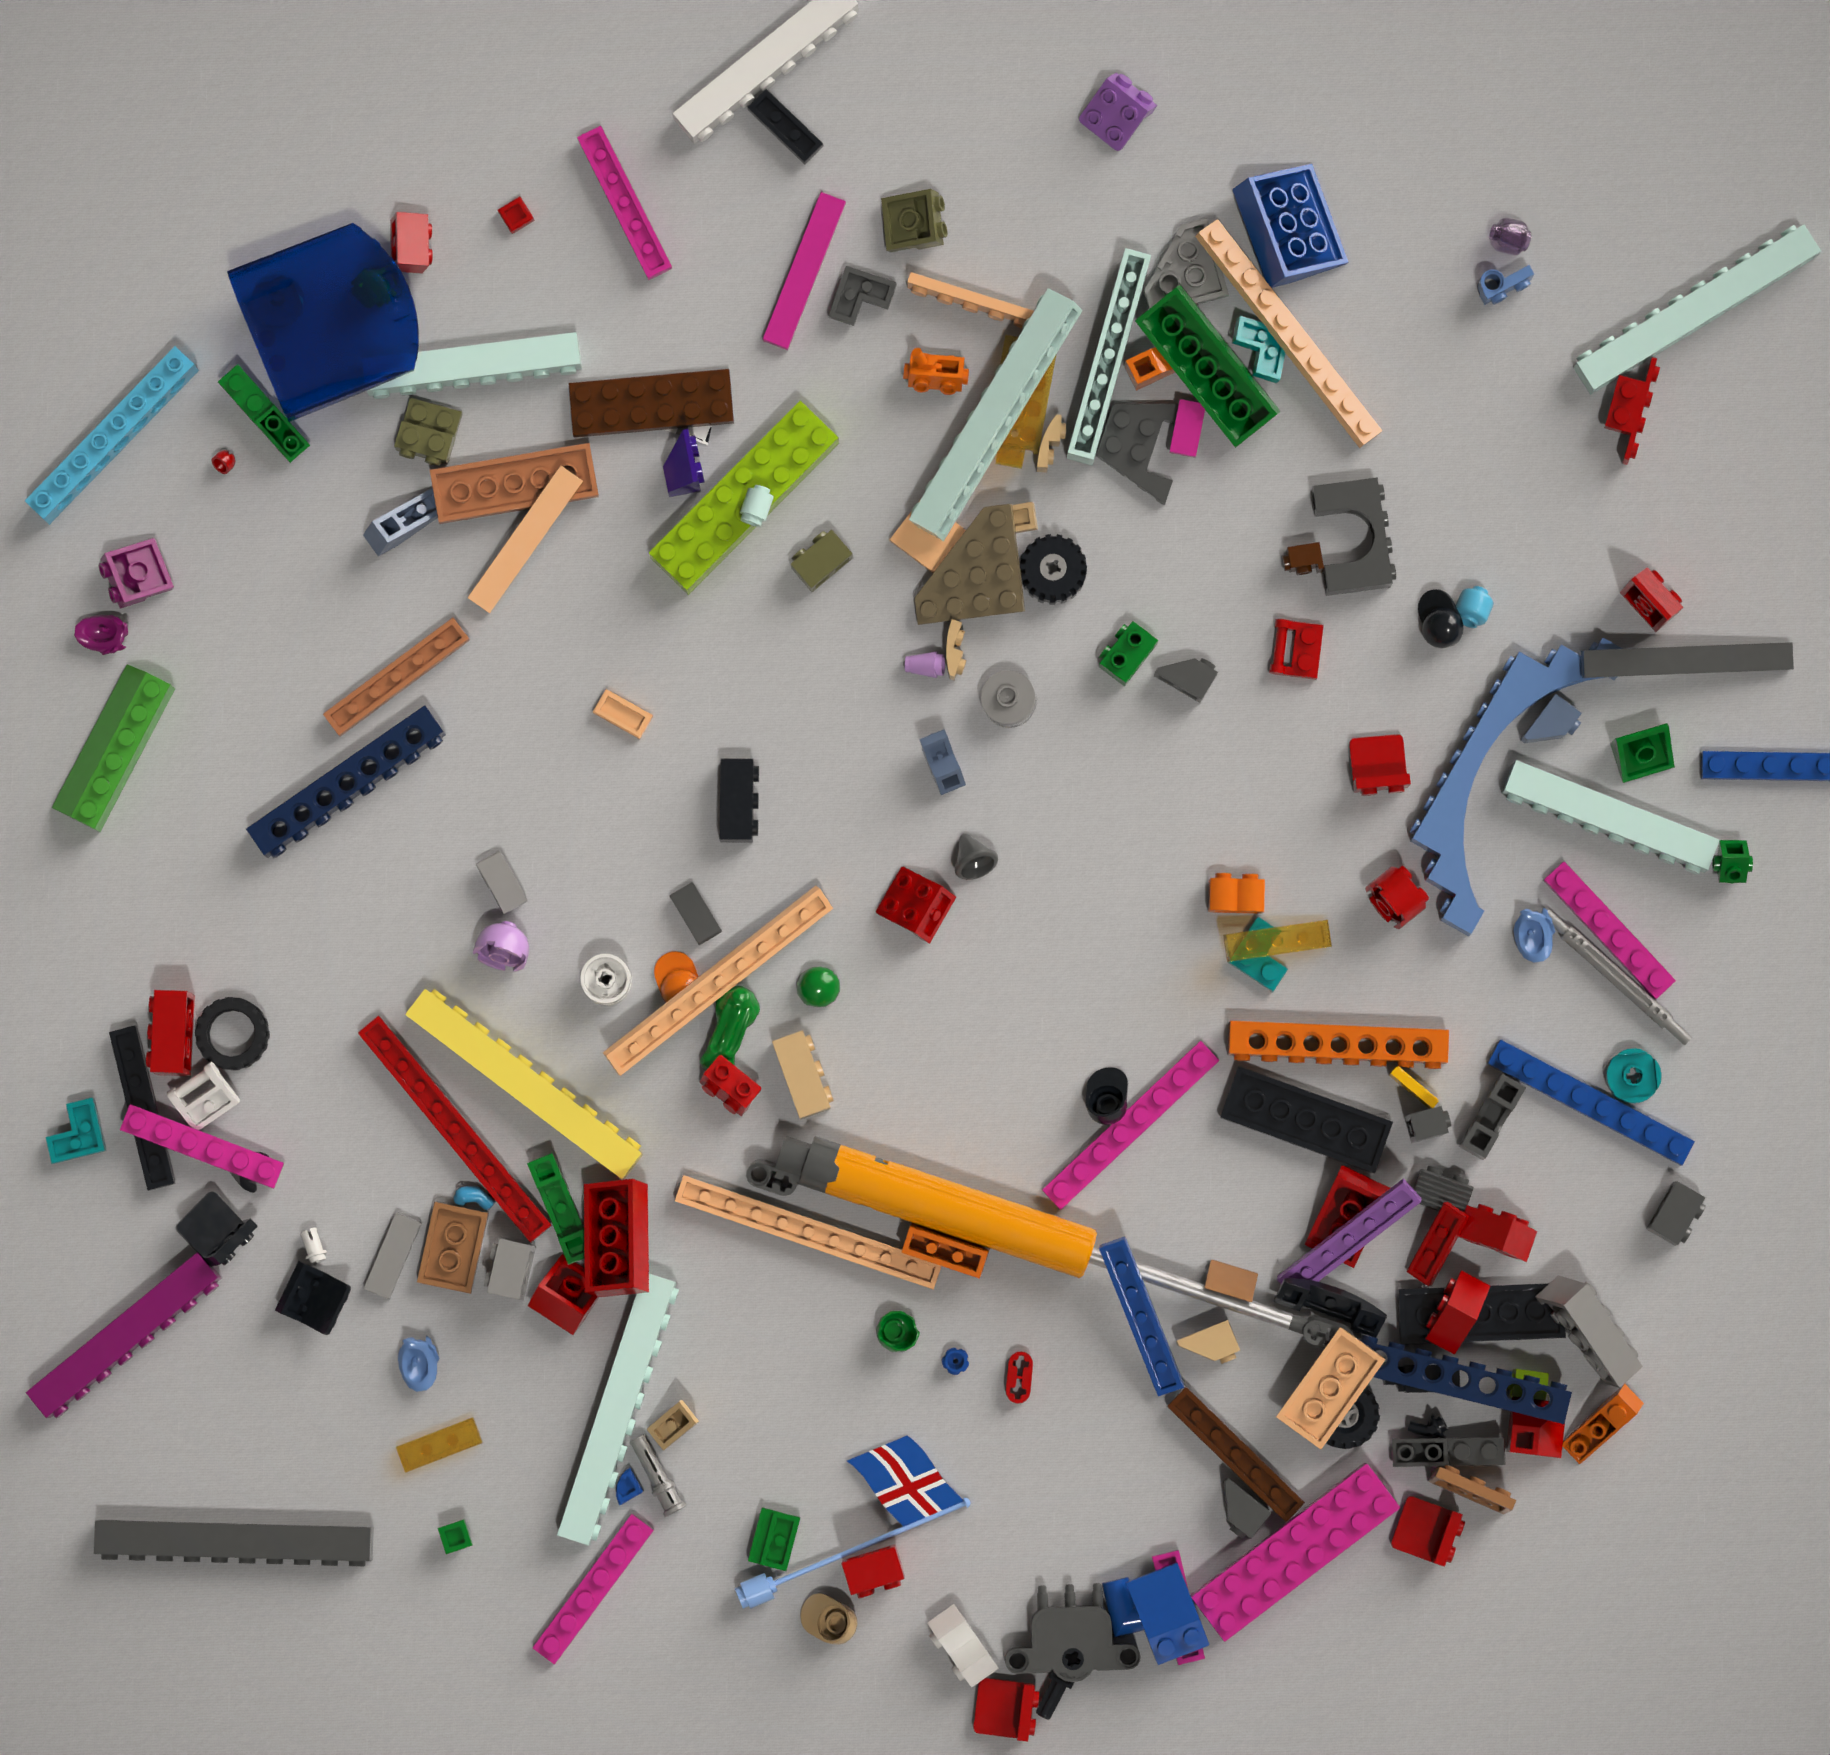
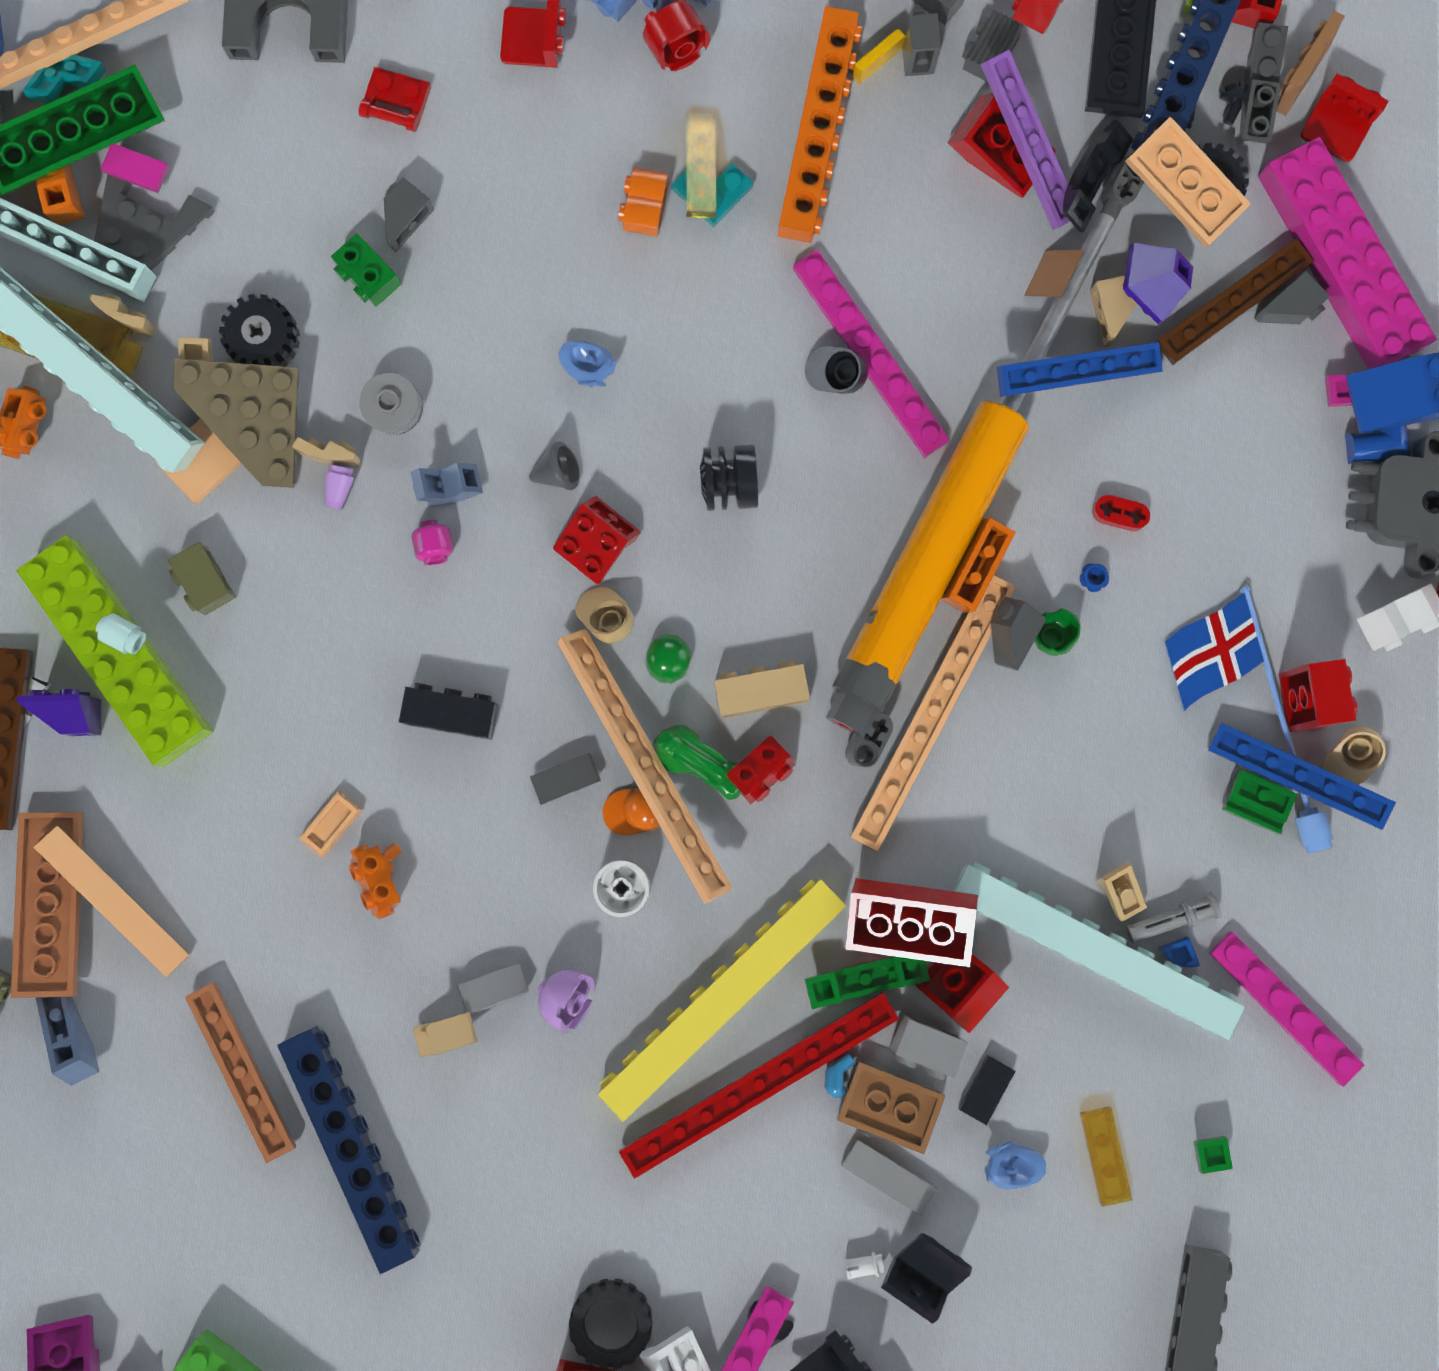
camera: 85 degrees left, 0 degrees up
(455, 847) = (445, 1034): none -> tan slope
(480, 1331) = (986, 1090): none -> black tile
(584, 760) = (373, 874): none -> orange brick
(801, 1569) = (1302, 776): none -> blue plate
(848, 923) = (605, 614): none -> tan cap
(888, 758) = (432, 542): none -> dark pink head
(890, 1293) = (1014, 632): none -> dark grey slope
(988, 1014) = (730, 477): none -> black wheel
(1077, 868) = (587, 362): none -> medium blue hat
(1237, 1373) = (1156, 279): none -> slope
(1303, 559) = (299, 72): reddish brown brick -> none
(1306, 1119) = (893, 171): black plate -> none
(1437, 1243) = (1047, 55): red tile -> none
(1457, 1311) = (1128, 38): red brick -> none

